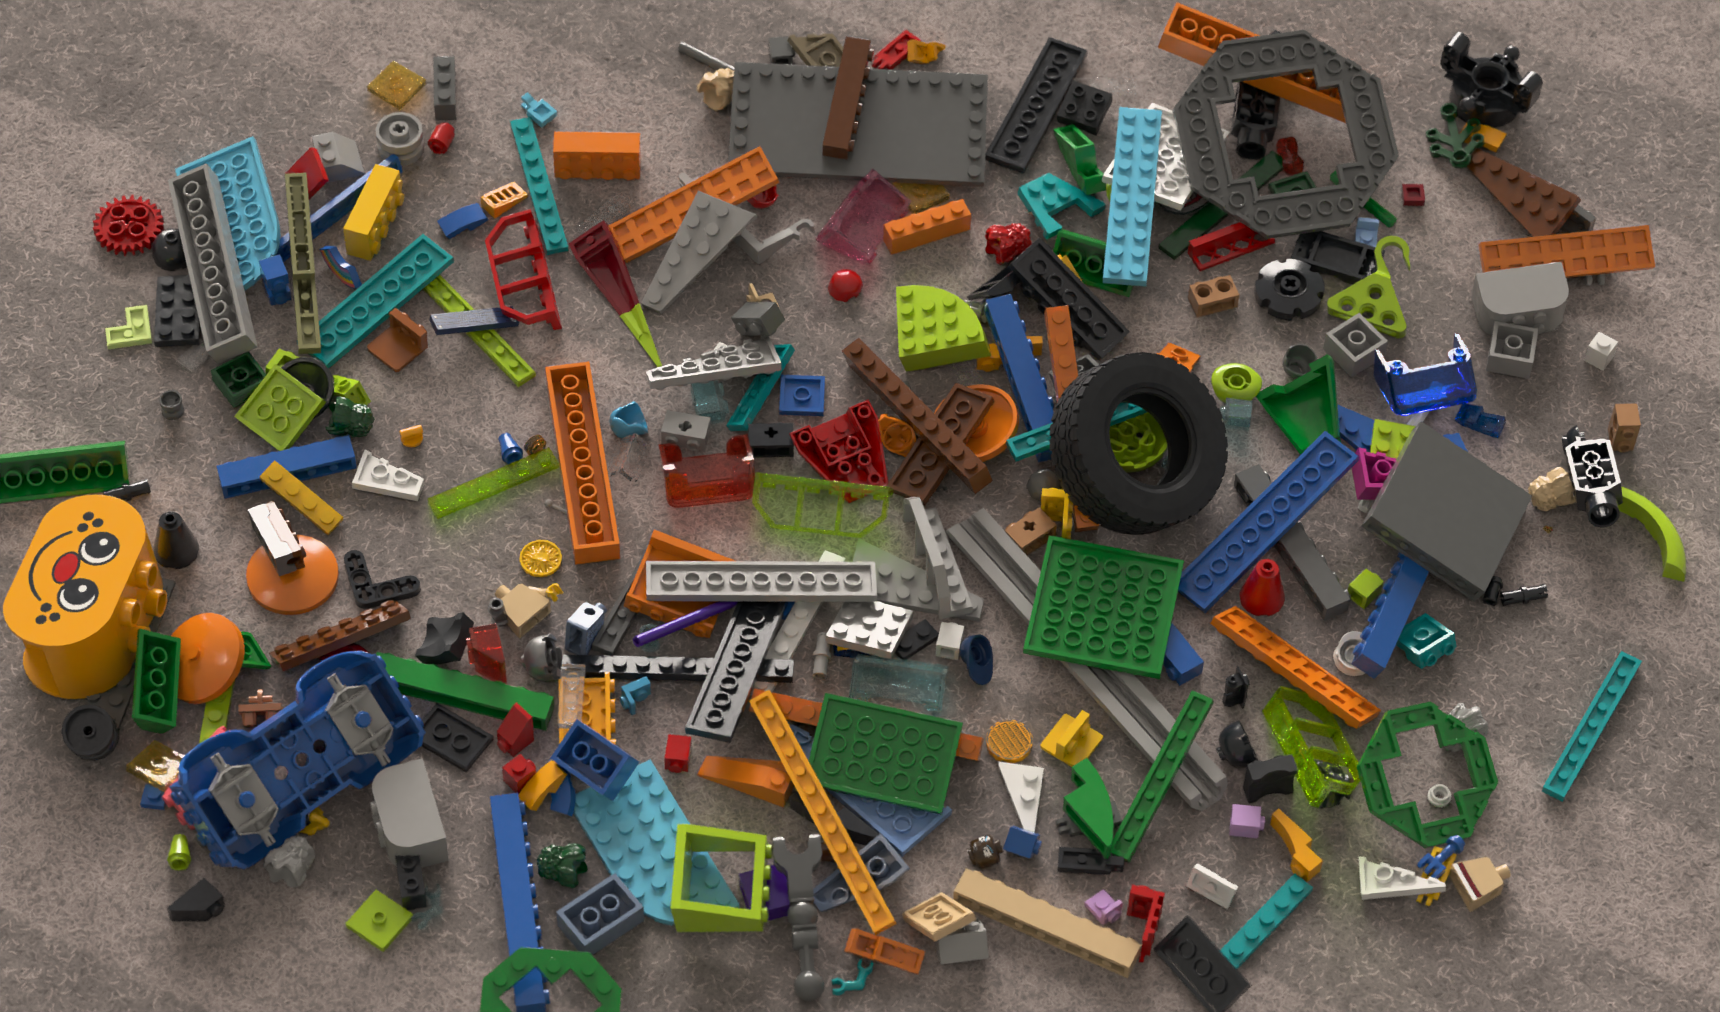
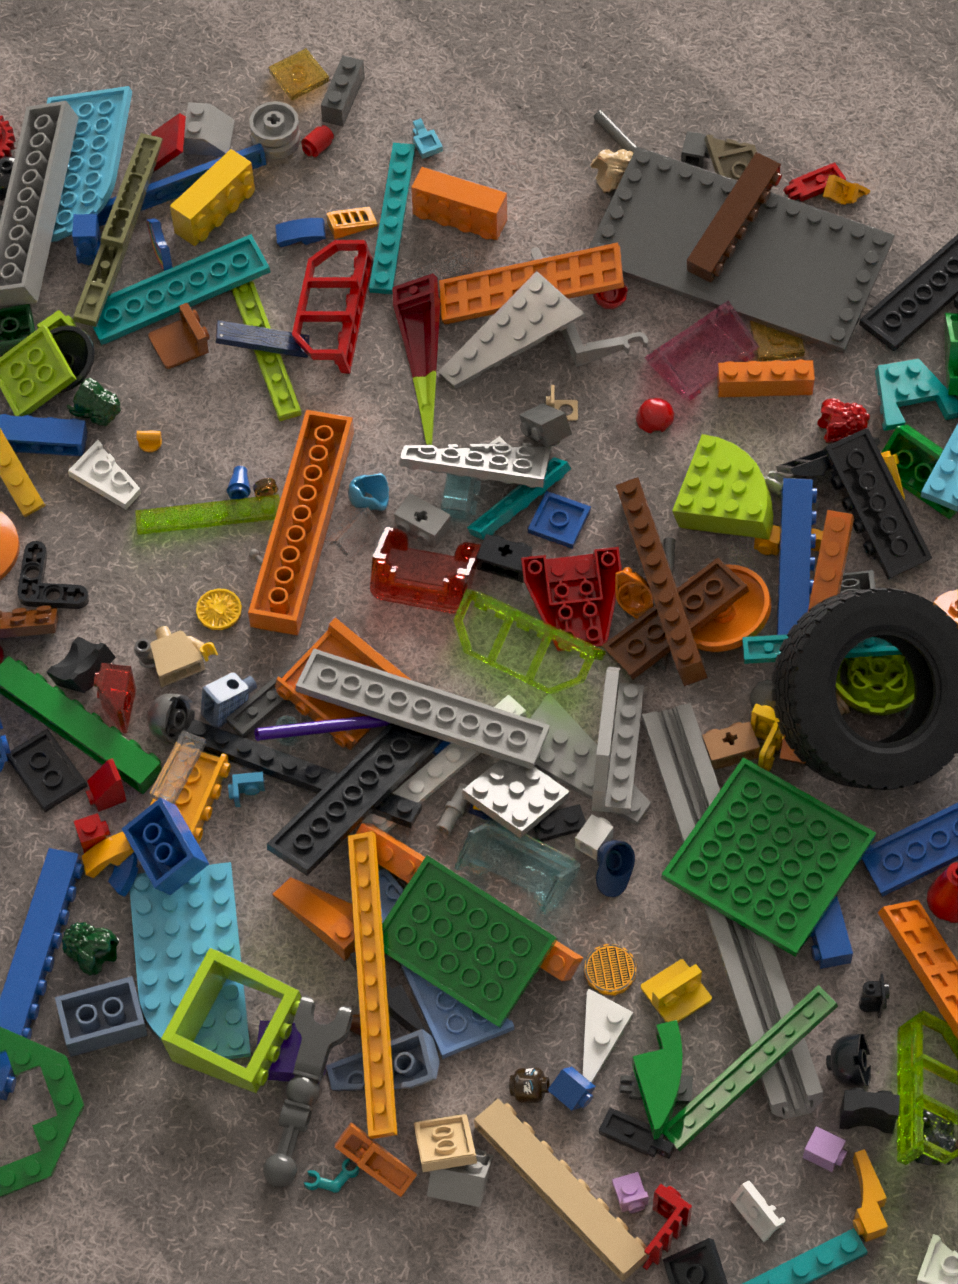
camera: 25 degrees right, 5 degrees up
(350, 389) = (108, 374): lime bracket -> none
(678, 753) = (259, 866): red brick -> none

